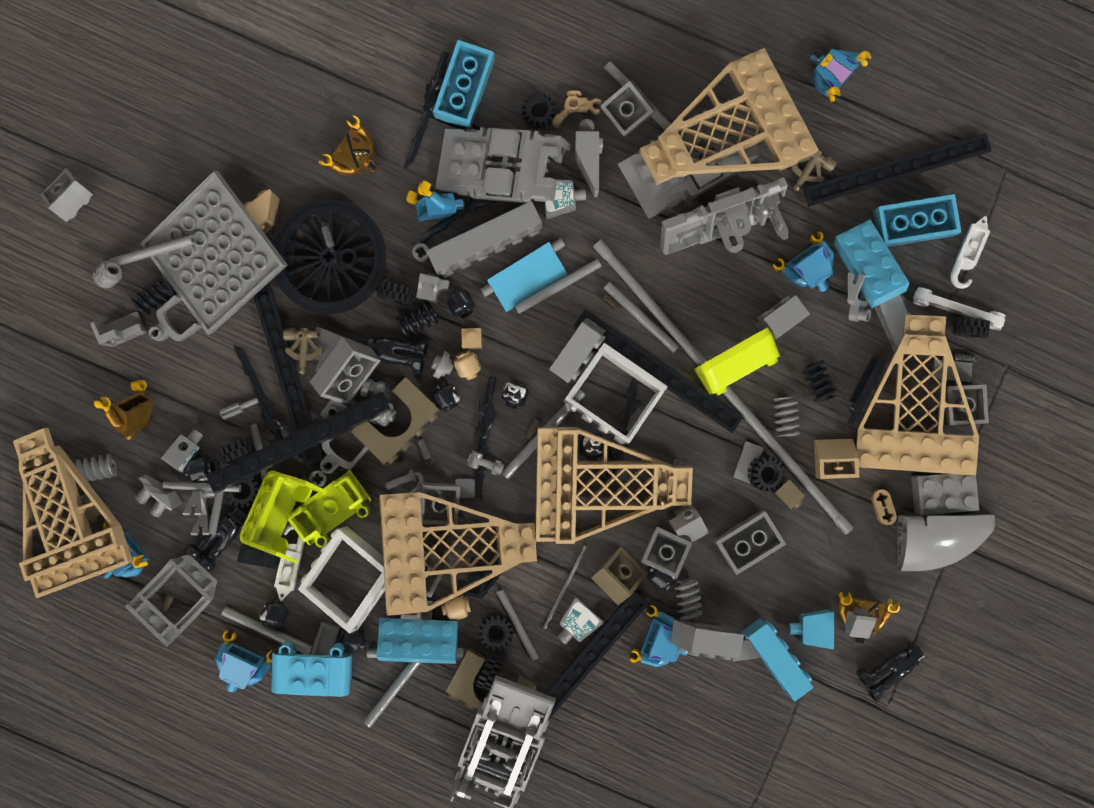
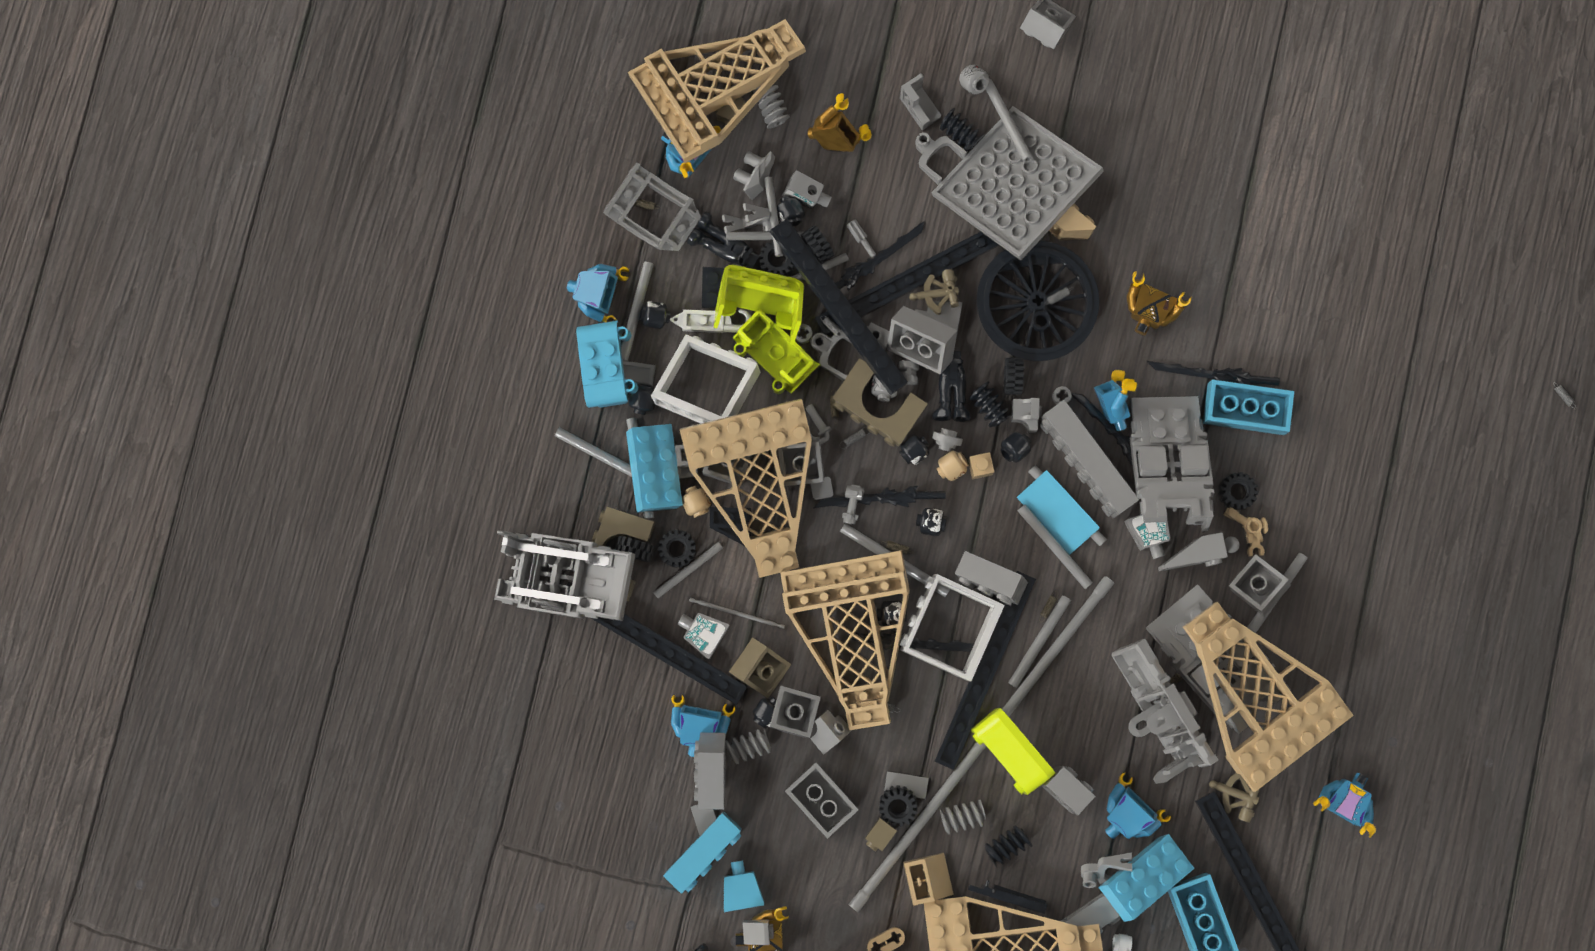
camera: 80 degrees right, 5 degrees down
(317, 450) = (832, 326): none -> light grey piece

